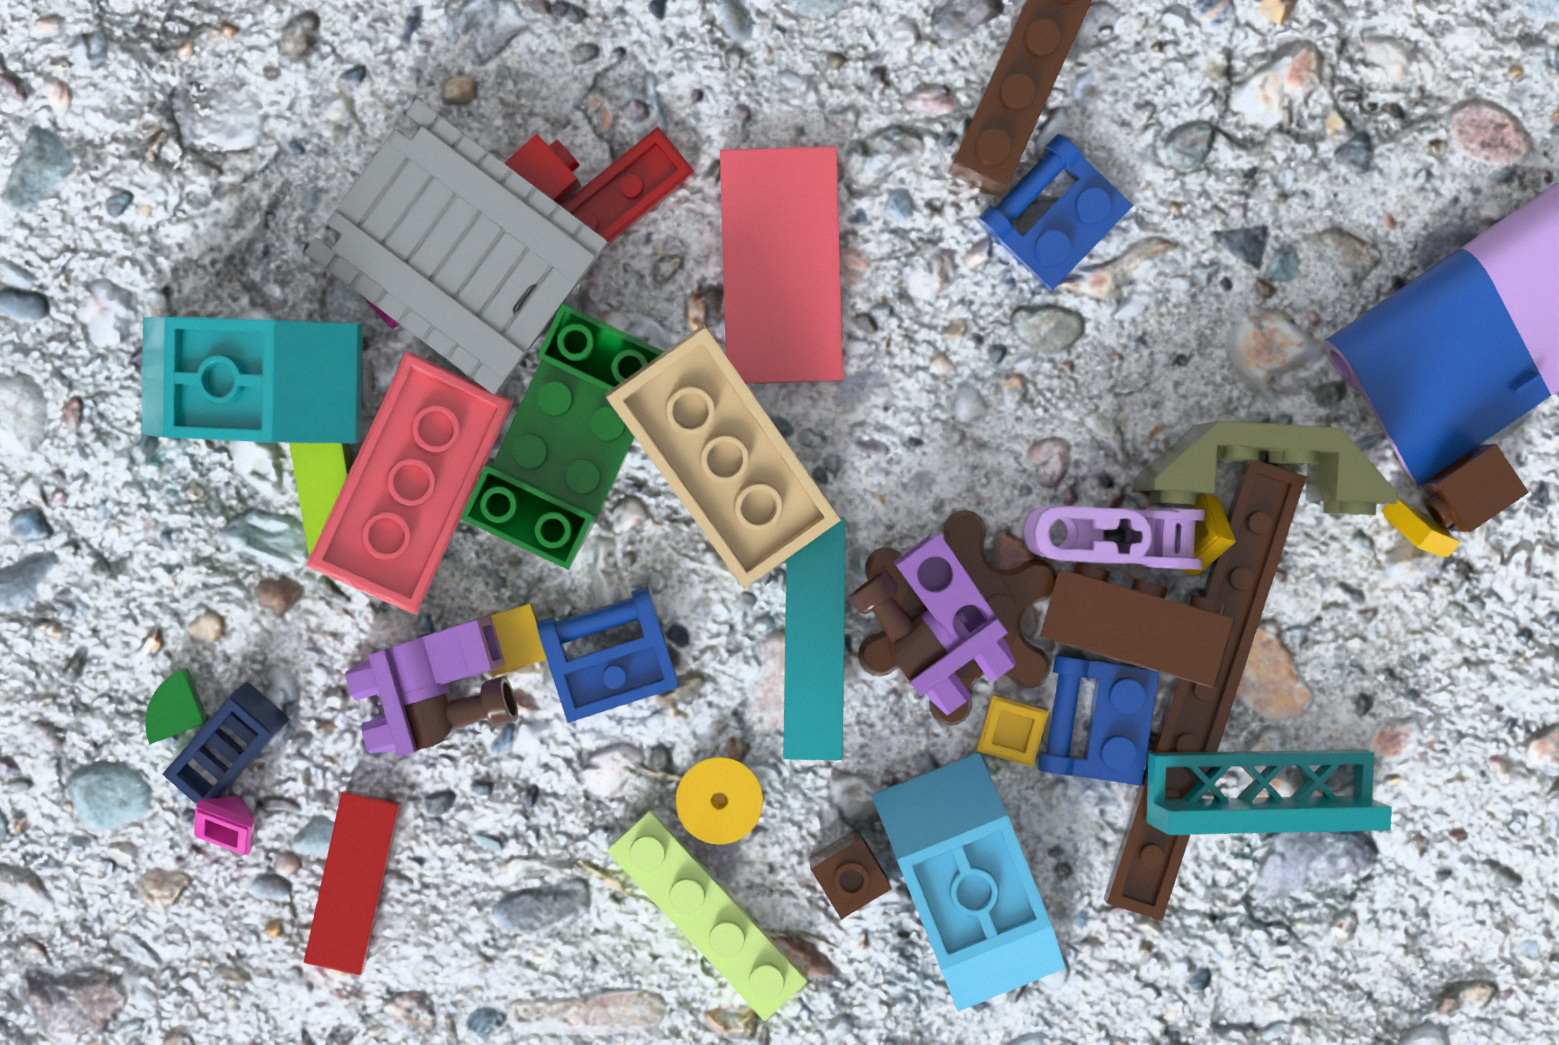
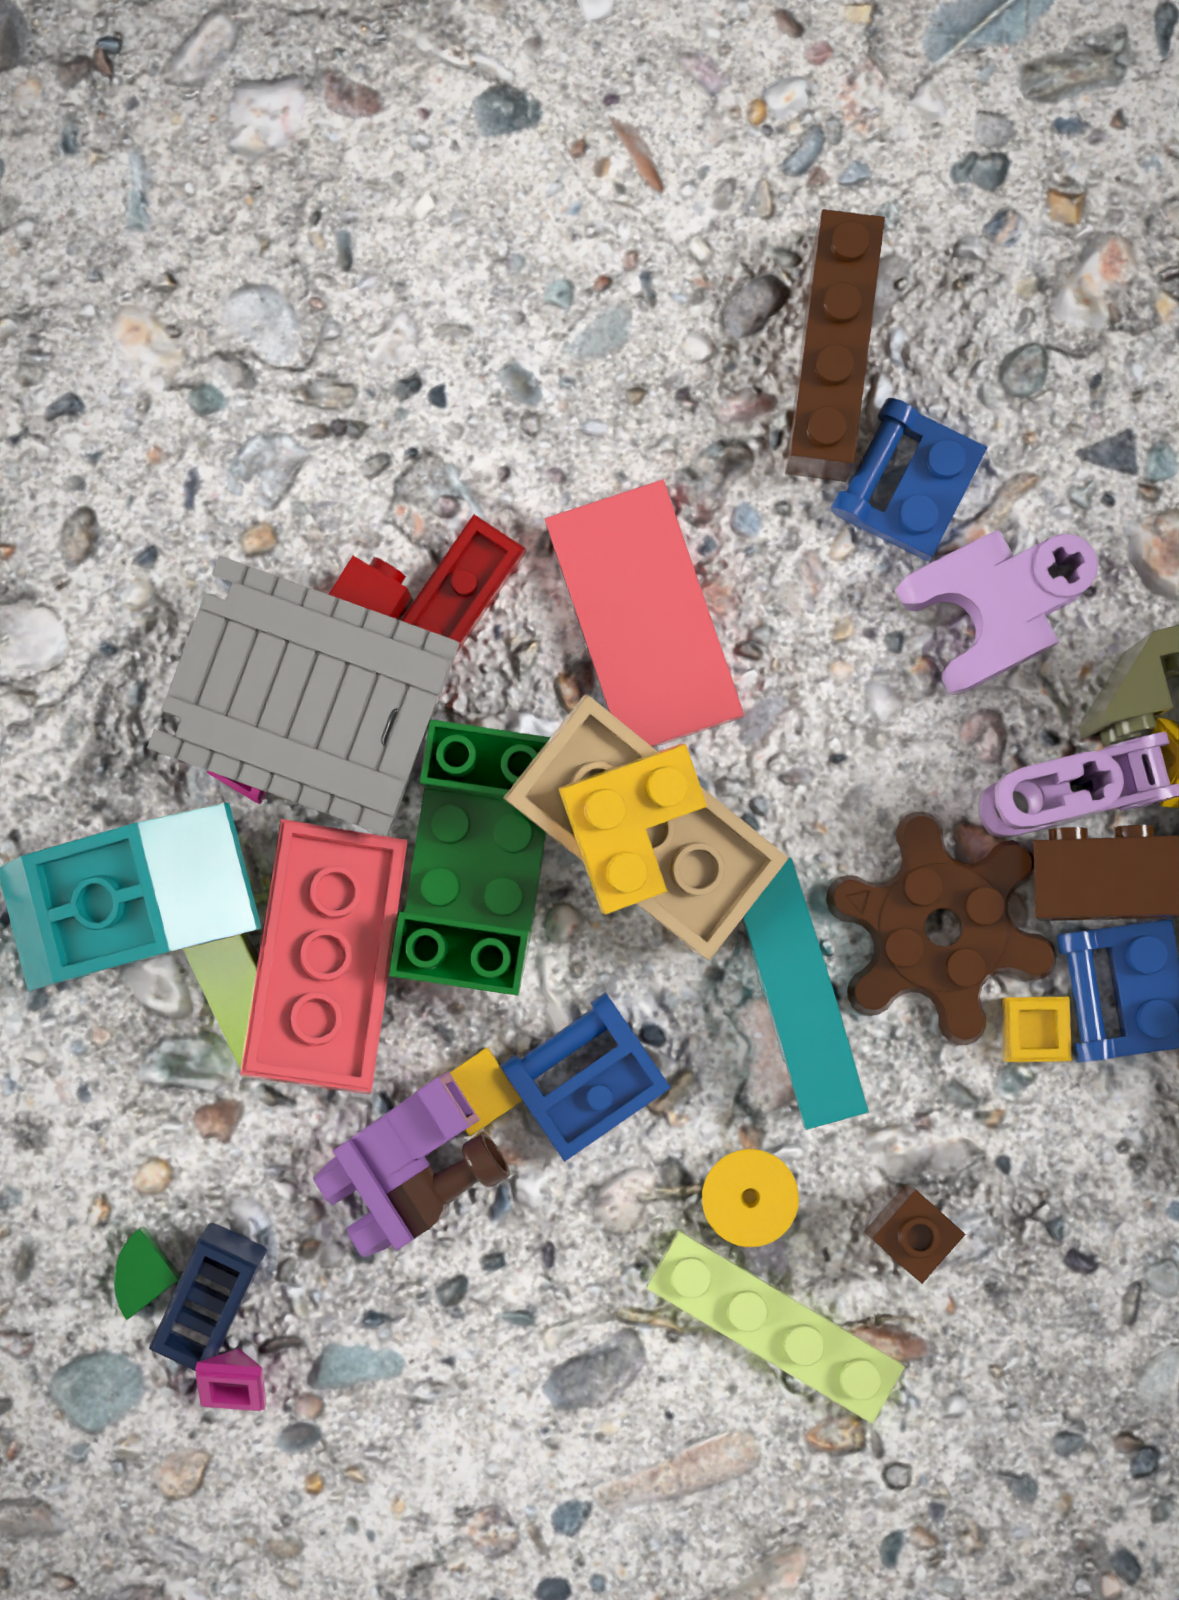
camera: 15 degrees left, 5 degrees down
(352, 882) = (384, 1406): red tile -> none
(697, 437) = (612, 817): none -> yellow plate
(948, 634) = (941, 939): medium lavender hips -> none
(969, 881) = (1046, 1203): medium azure slope -> none
(1104, 346) = (1004, 597): none -> lavender piece

